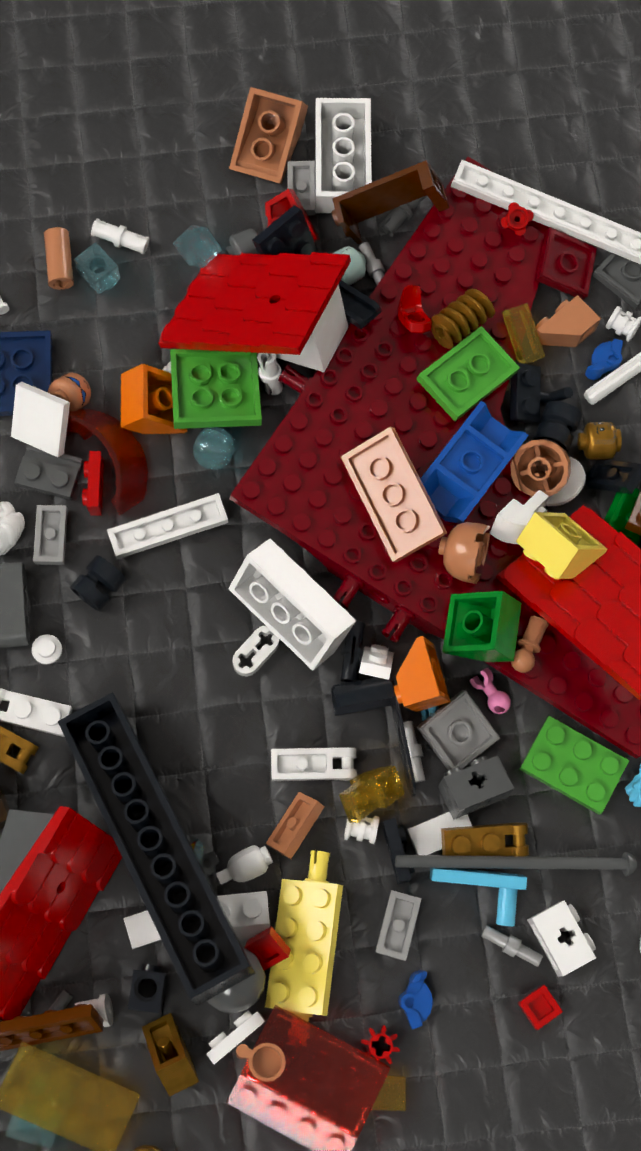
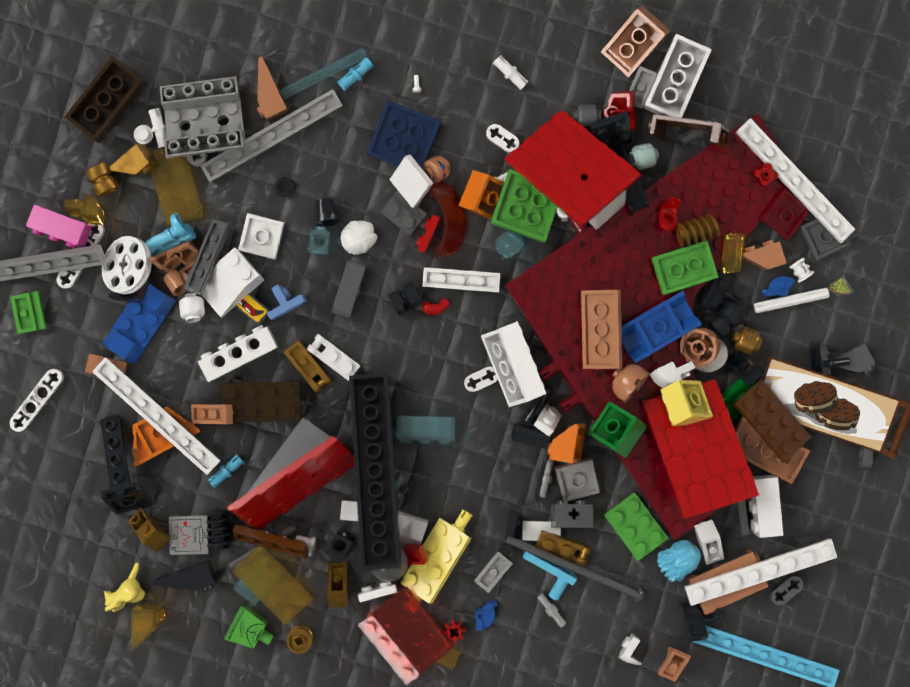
camera: 25 degrees right, 15 degrees up
(46, 649) = (359, 325): white plate -> none
(50, 535) = (389, 255): light grey plate -> none
(58, 258) = (465, 71): nougat piece -> none
(96, 258) = (488, 81): clear light blue brick -> none
(145, 322) = (505, 134): none -> white beam
(149, 581) = (435, 309): none -> red arm
(197, 246) = (556, 103): clear light blue brick -> none
(205, 754) = (426, 429): none -> clear light blue brick
(246, 865) = (423, 501): white plant -> none
(264, 1061) = (387, 615): nougat piece -> none
(295, 825) = (459, 491): nougat plate -> none
(312, 764) = (485, 460): white plate -> none
(364, 829) = (497, 508): white bush -> none
(371, 791) = (511, 491): clear yellow brick -> none
(373, 266) = (662, 162): light grey bar -> none
(497, 699) = (609, 471): bright pink arm -> none
(529, 644) = (641, 450): nougat pin -> none
(540, 1007) = (551, 649): red plate -> none
(562, 956) = (580, 630): white brick -> none

